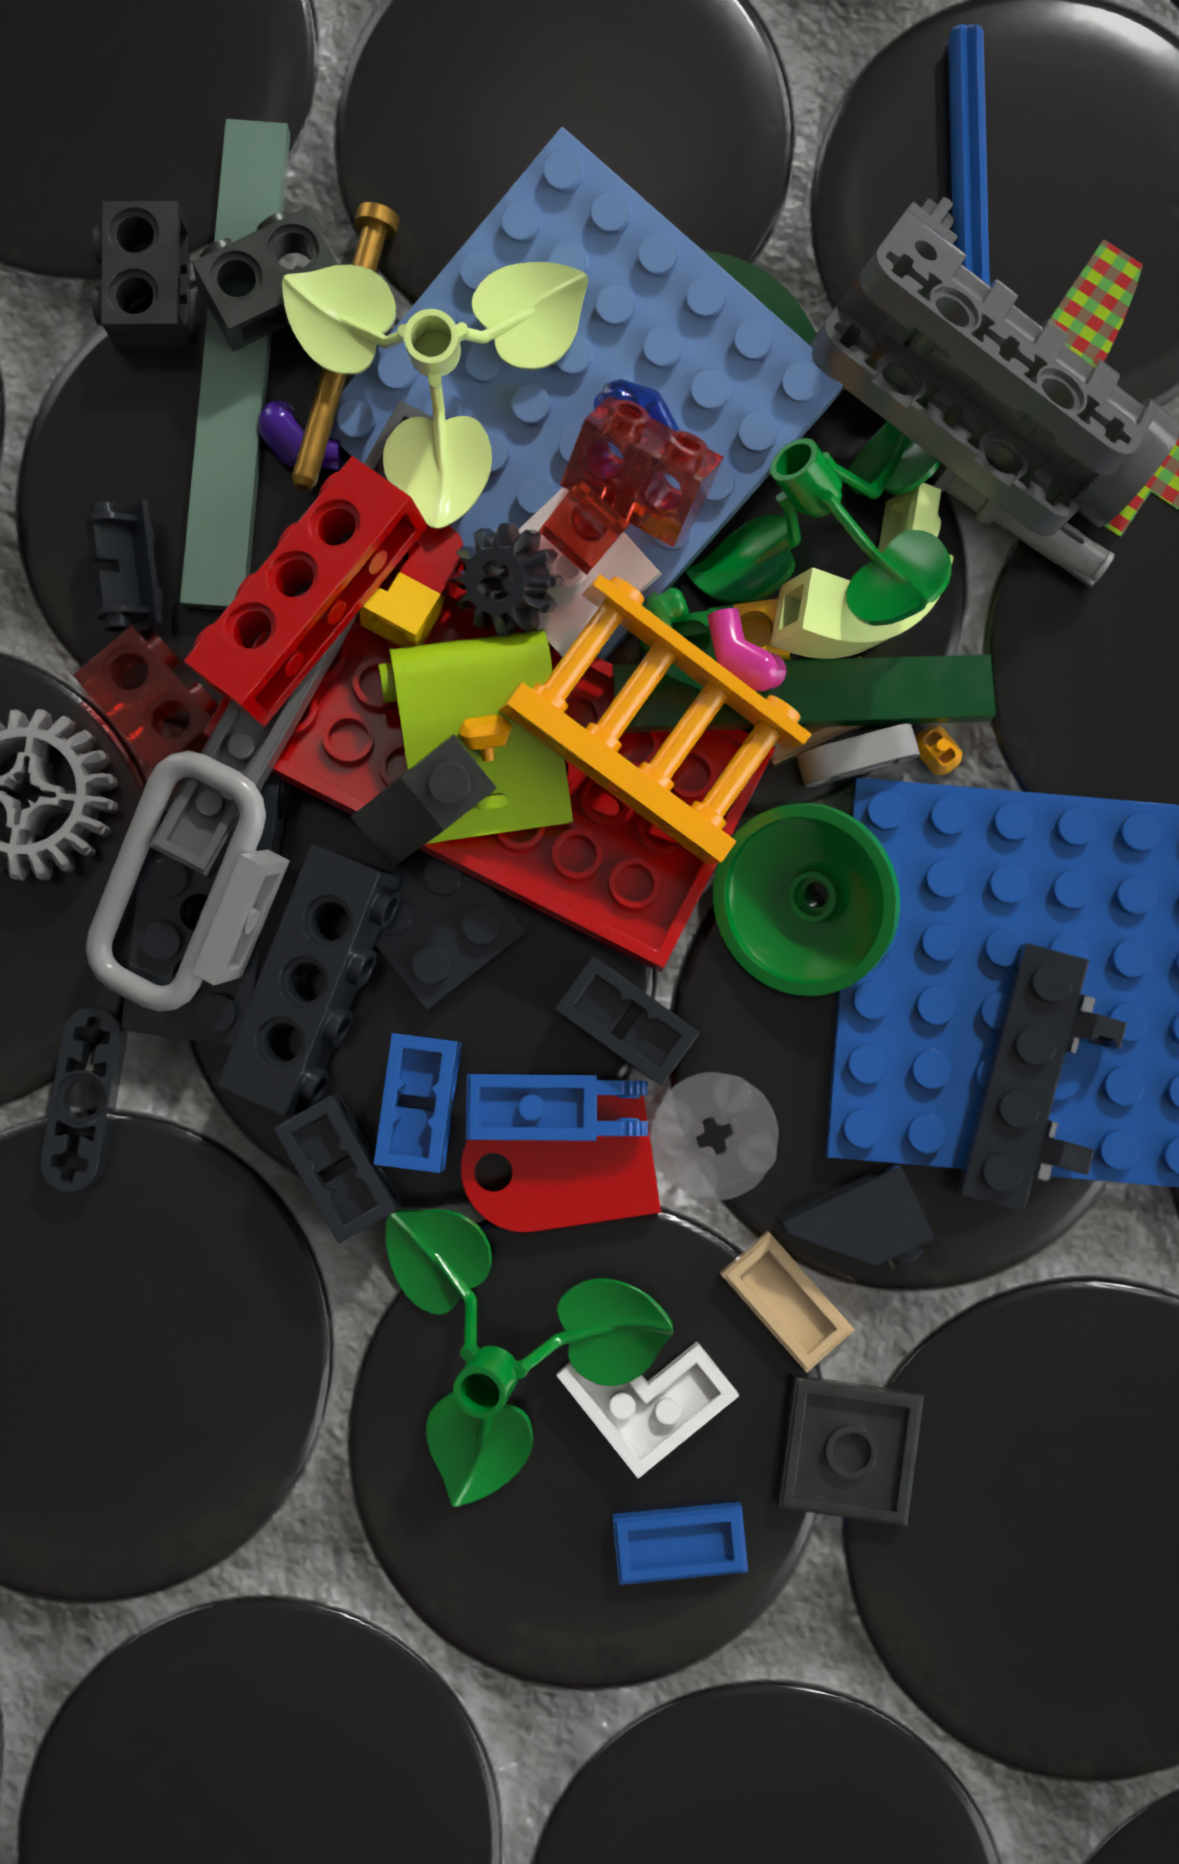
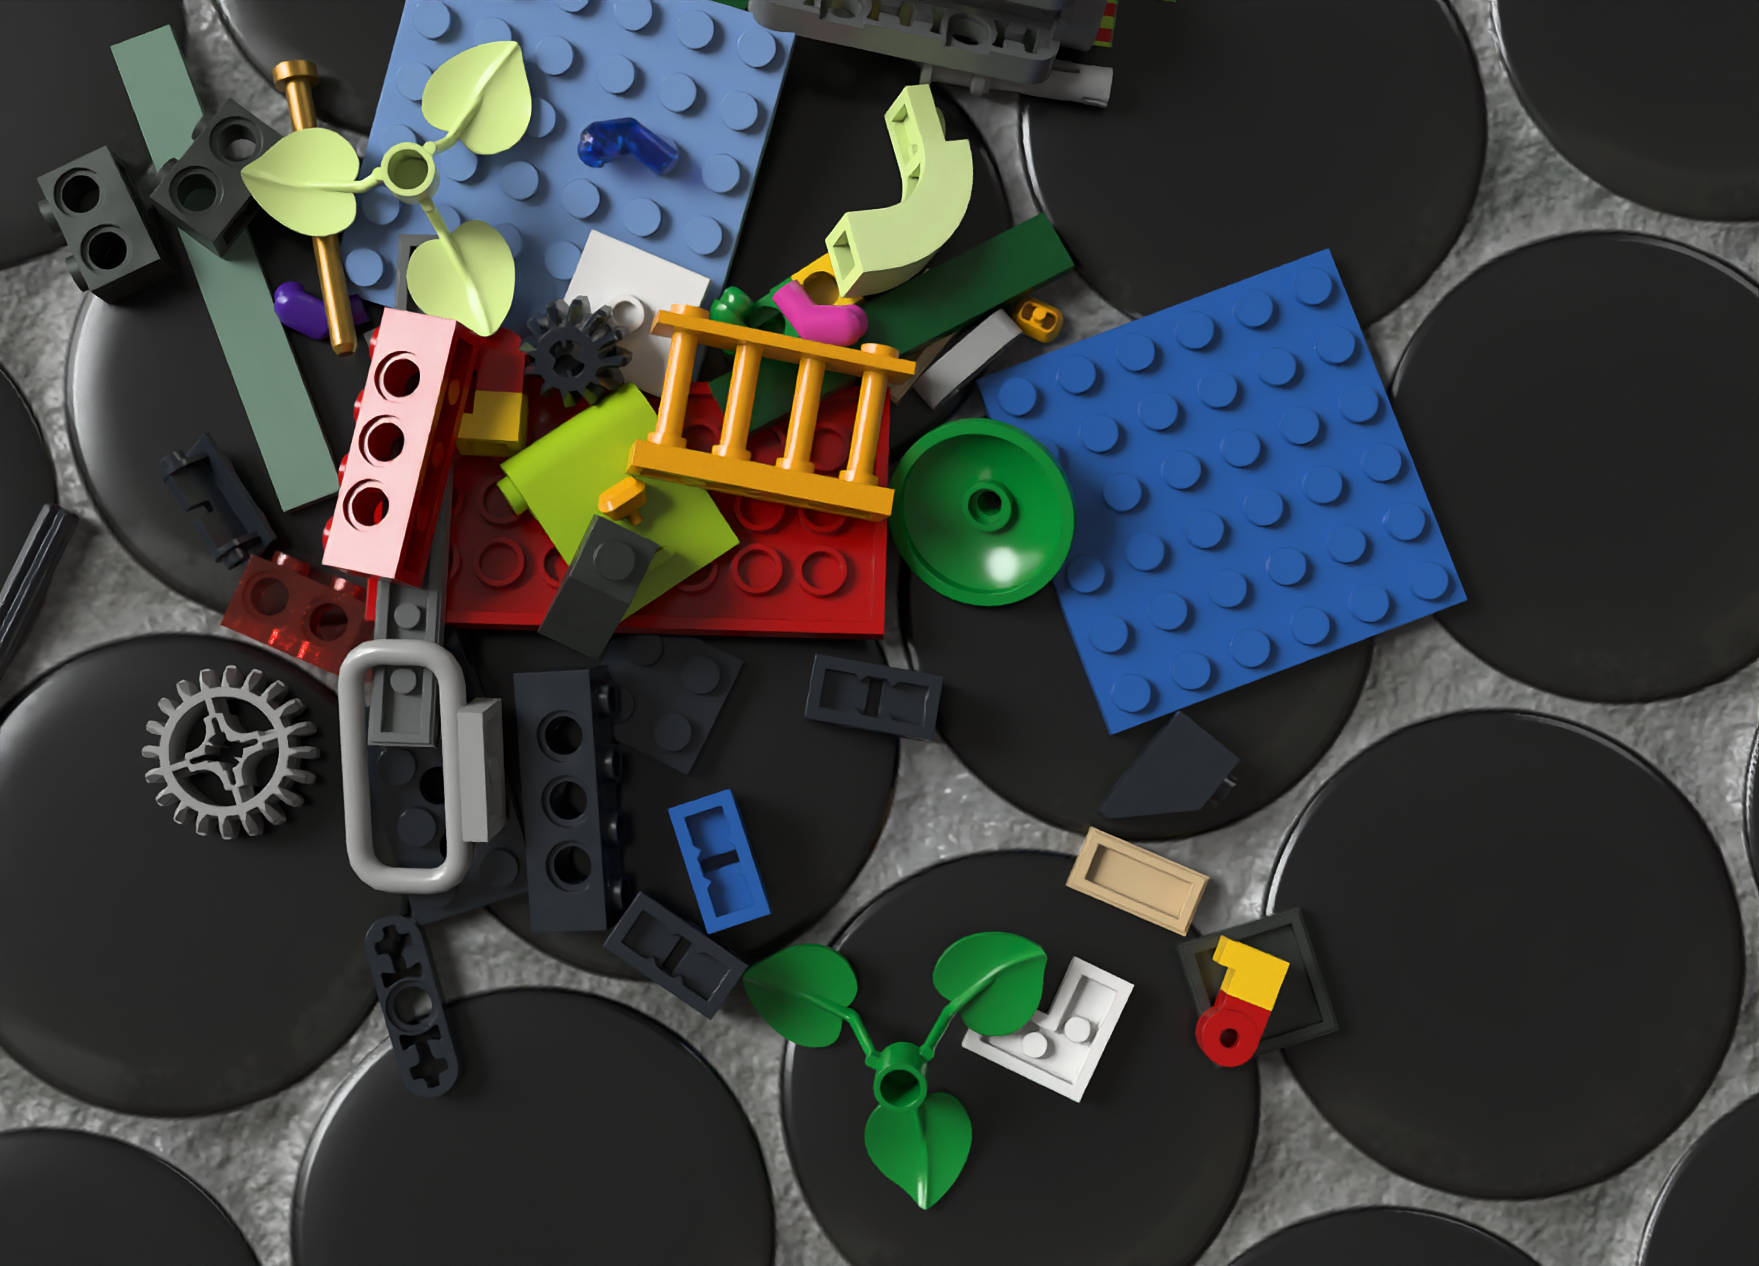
camera: 30 degrees left, 0 degrees up
(546, 1107) = (838, 809): blue hinge -> none
(568, 1180) = (881, 849): red tile -> none
(584, 527) = (623, 272): clear red plate -> none
(637, 482) = (650, 210): clear red brick -> none
(680, 1543) = (1144, 1143): blue tile -> none
(748, 1150) = (1038, 760): clear plate -> none
(831, 1463) = (1242, 1008): none -> leg
(887, 590) = (791, 223): green plant -> none
(1037, 1028) = (1243, 526): black hinge -> none

